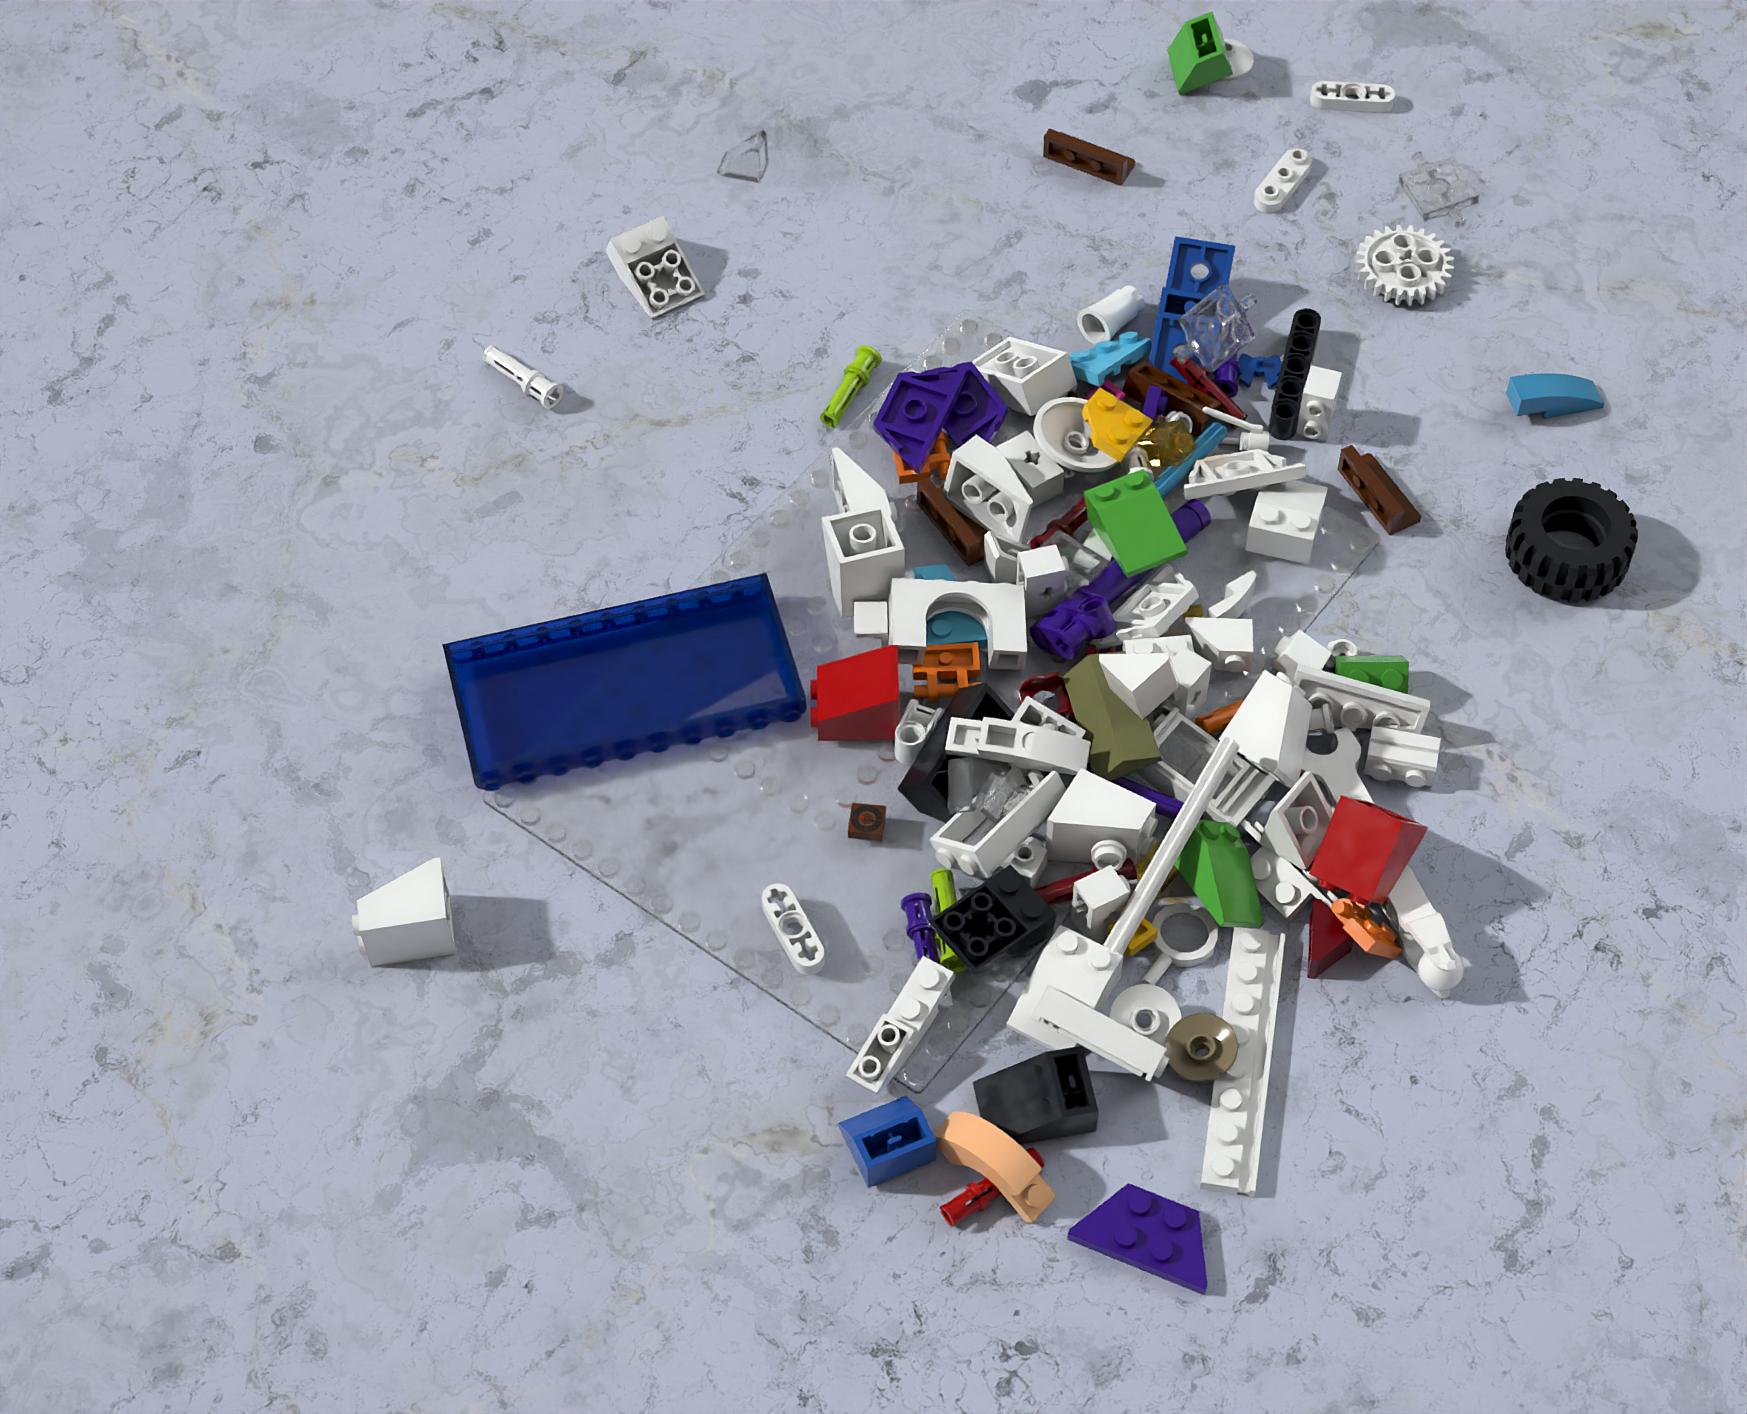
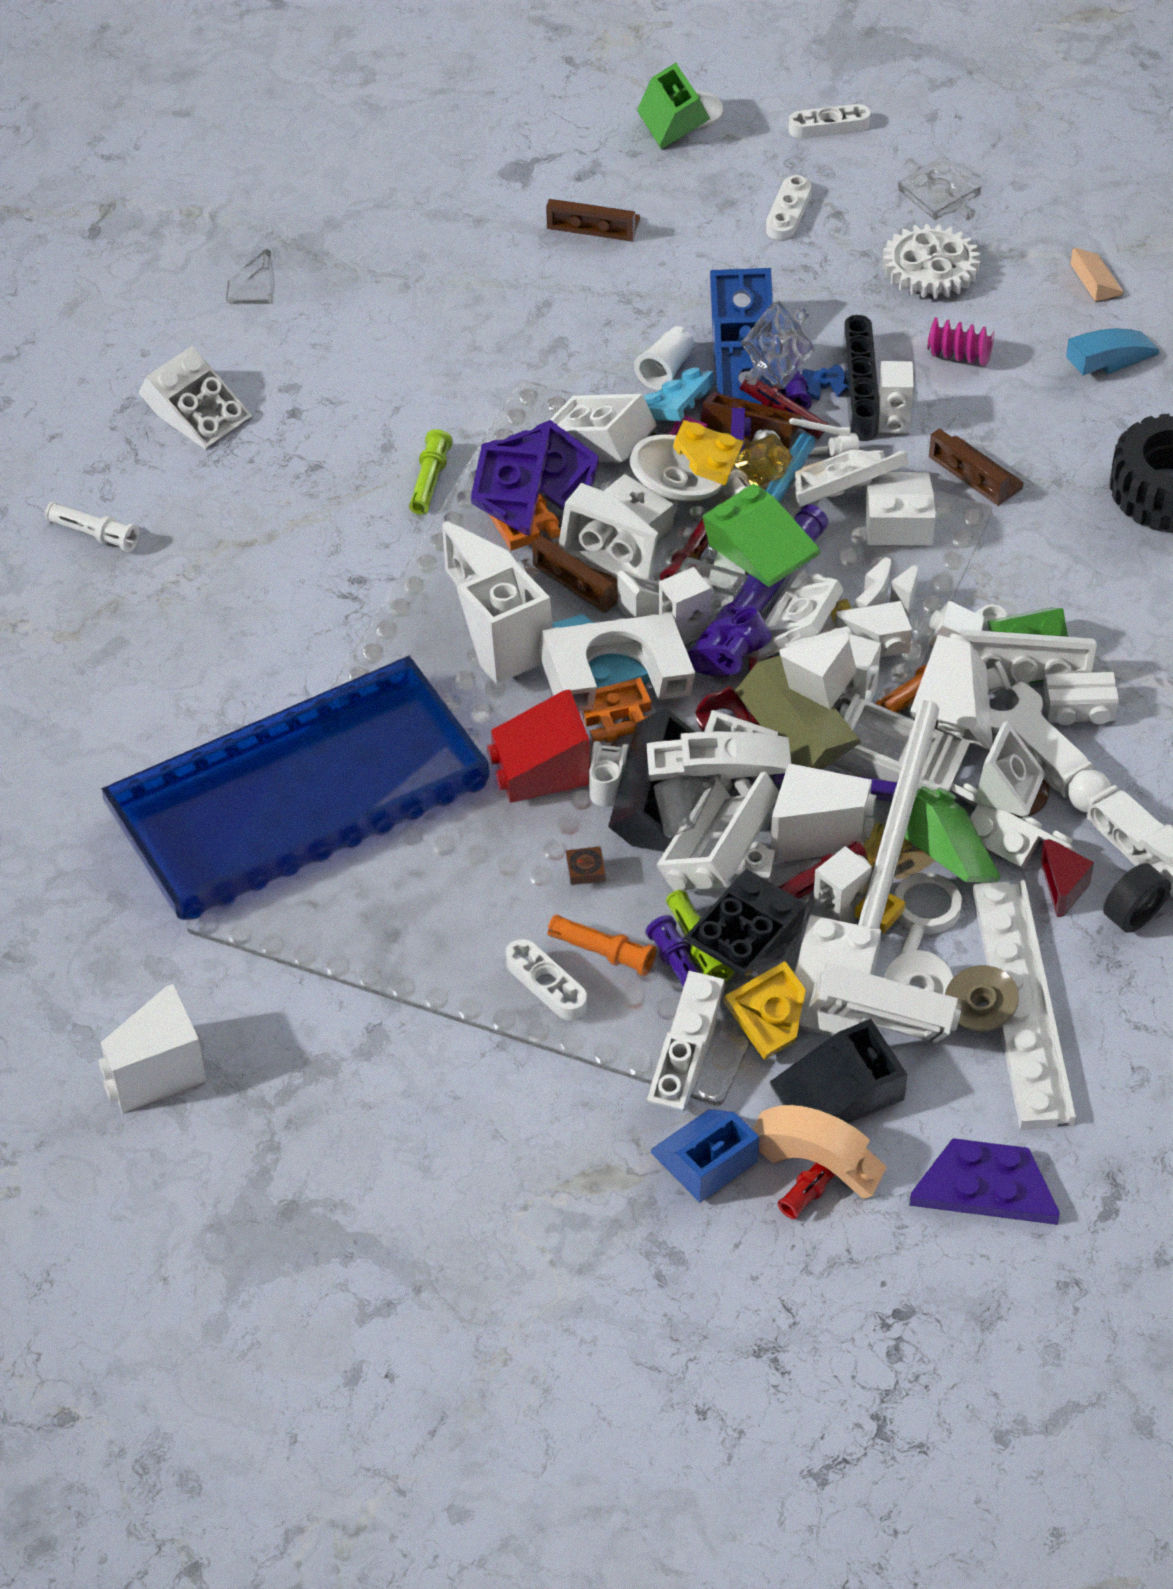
camera: 15 degrees left, 5 degrees down
(867, 913) = (616, 948): none -> orange pin
(871, 620) = (528, 677): white panel -> none
(992, 1009) = (769, 1009): none -> yellow plate
(999, 796) = (716, 807): clear slope -> none
(1108, 853) = (836, 838): white plate -> none
(1263, 606) = (904, 588): none -> white slope
(1365, 850) = (1081, 782): red slope -> none
(1370, 936) = (1105, 857): orange plate -> none
(1386, 980) = (1137, 897): none -> black tyre
(1404, 358) = (960, 342): none -> dark pink piece
(1565, 311) = (1094, 275): none -> light nougat slope

